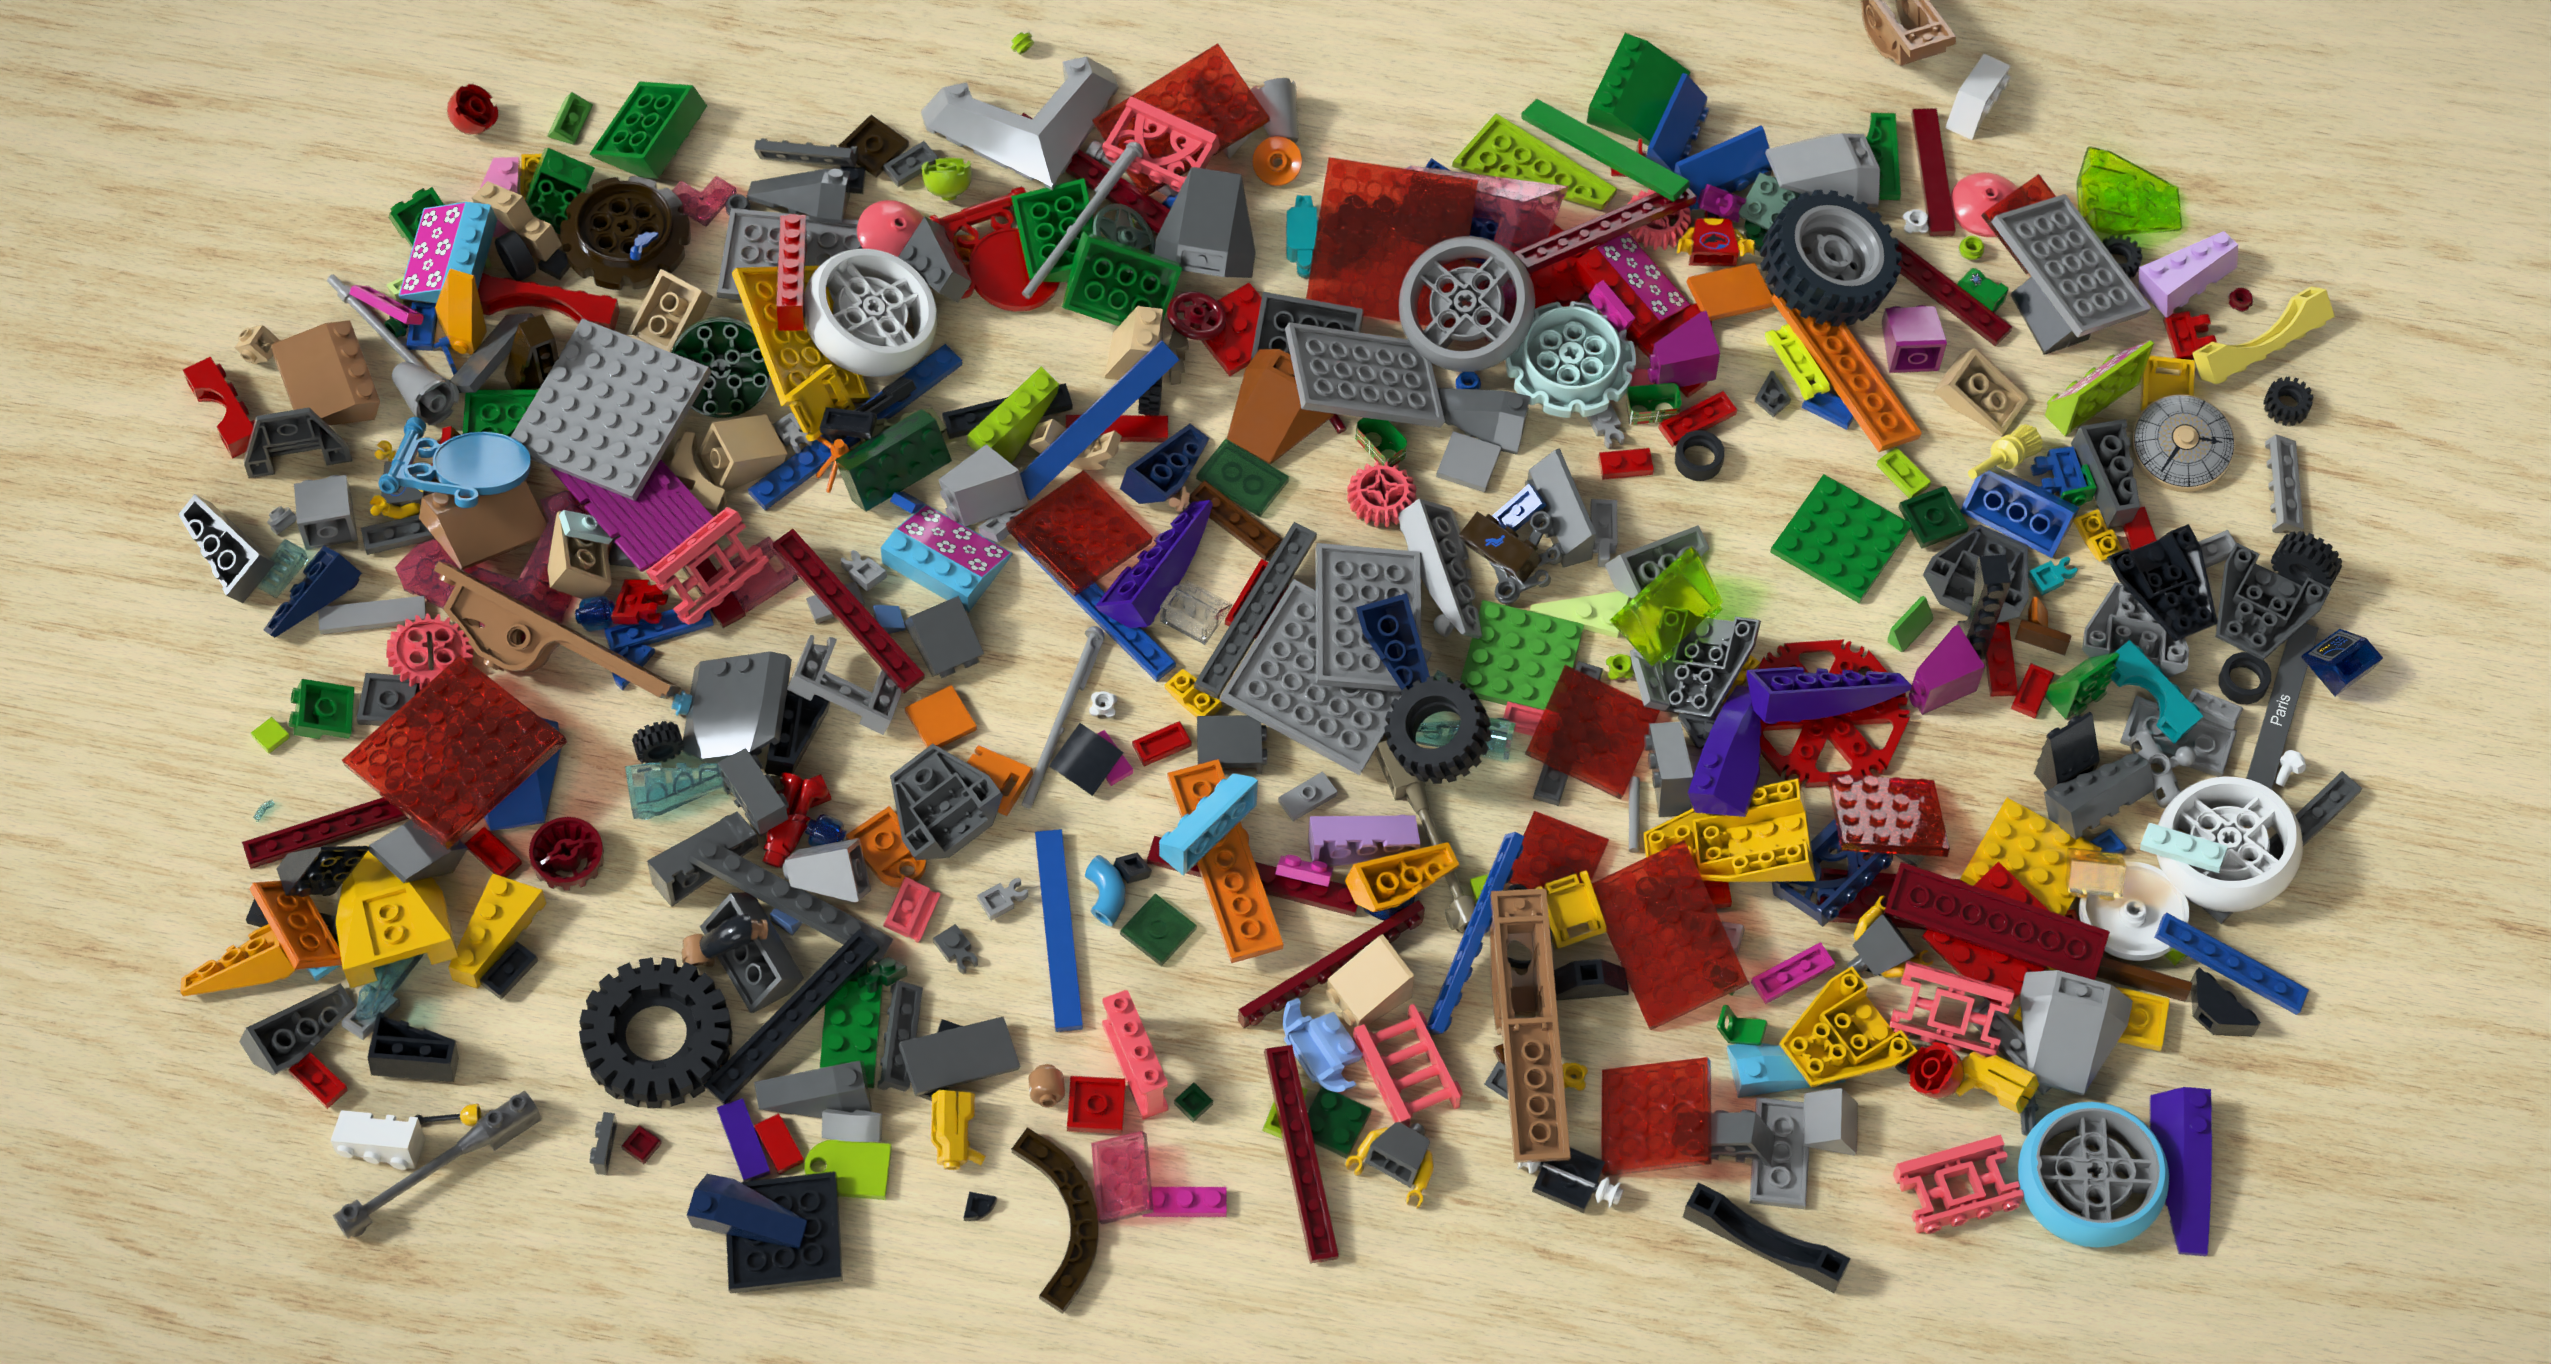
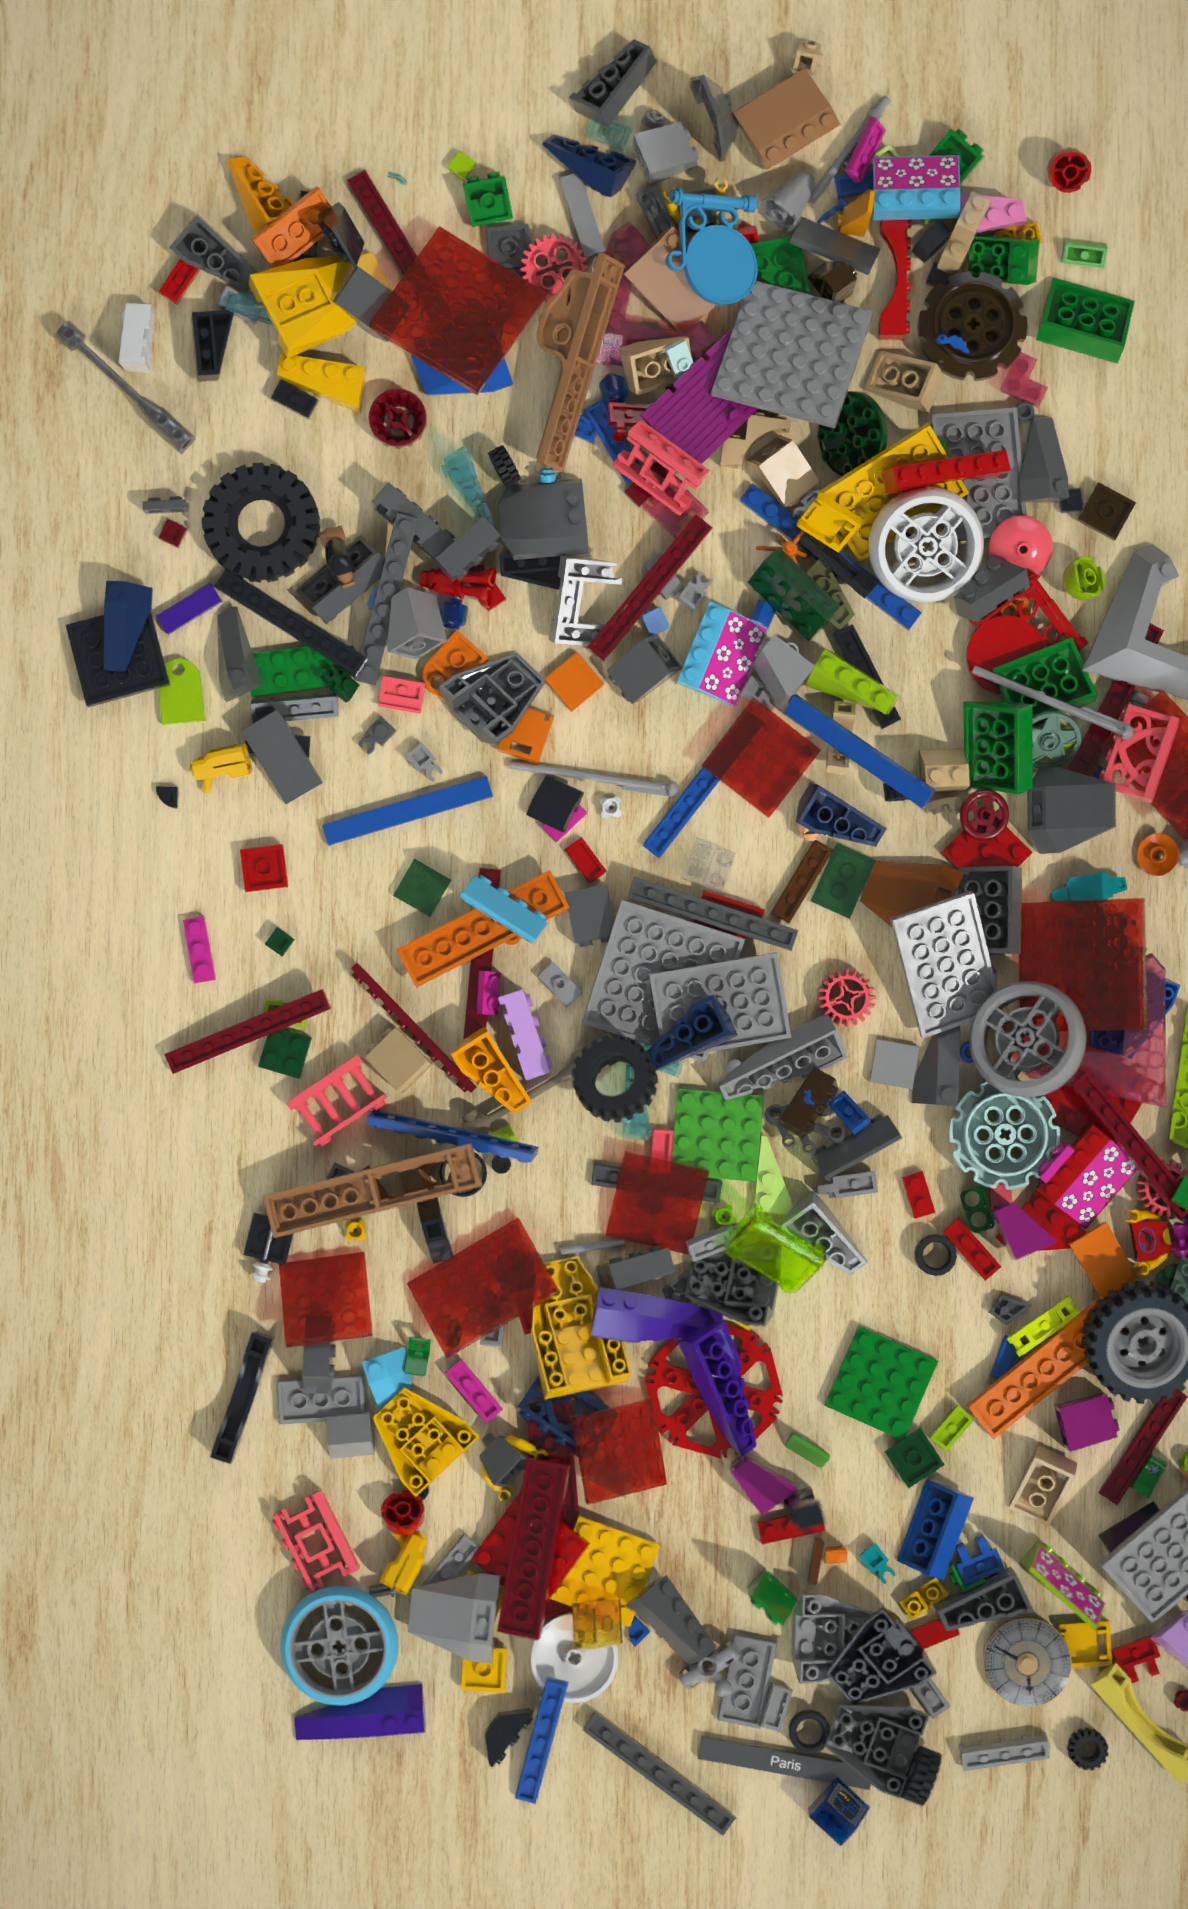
camera: 85 degrees right, 25 degrees up
(208, 384) = (727, 62): red arch -> none
(469, 1116) = (170, 401): hinge -> none
(493, 853) = (391, 364): red tile -> none
(778, 1143) = (191, 635): red tile -> none
(806, 153) = (1083, 457): dark grey hinge -> none
(848, 423) = (815, 550): black tile -> none
(853, 1127) = (211, 692): light grey slope -> none
(909, 163) = (1094, 546): dark grey plate -> none
(1046, 1085) = (271, 827): medium nougat head -> none
(1081, 1211) = (176, 873): dark brown plate -> none
(1110, 889) = (447, 844): dark azure cylinder -> none
(1122, 1177) = (205, 899): clear pink plate -> none
(1132, 868) = (468, 858): black plate -> none
(1135, 427) = (871, 785): red tile -> none
(1135, 1054) = (302, 890): coral fence -> none
(1140, 591) = (730, 825): dark purple wedge -> none
(1193, 700) = (637, 867): yellow slope -> none
(1320, 1046) = (342, 1031): light blue plate -> none
(1388, 434) = (898, 992): green piece -> none
(1400, 1154) = (261, 1106): dark grey torso -> none
(1556, 851) = (541, 1191): clear red plate -> none
(1571, 905) = (498, 1206): yellow container -> none
(1607, 424) = (952, 1173): light grey plate -> none
(1953, 571) = (864, 1505): dark grey wedge -> none
(1956, 989) = (473, 1520): coral fence -> none
(2011, 450) = (983, 1515): light yellow piece -> none
(2032, 690) = (767, 1557): red tile -> none
(2068, 752) = (699, 1592): black slope -> none
(2144, 979) = (518, 1673): reddish brown tile -> none
(2176, 712) = (757, 1677): teal arch -> none
(2183, 847) = (623, 1694): light aqua plate -> none
(2225, 807) = (670, 1693): white wheel -> none
(2290, 761) = (736, 1776): white plate -> none

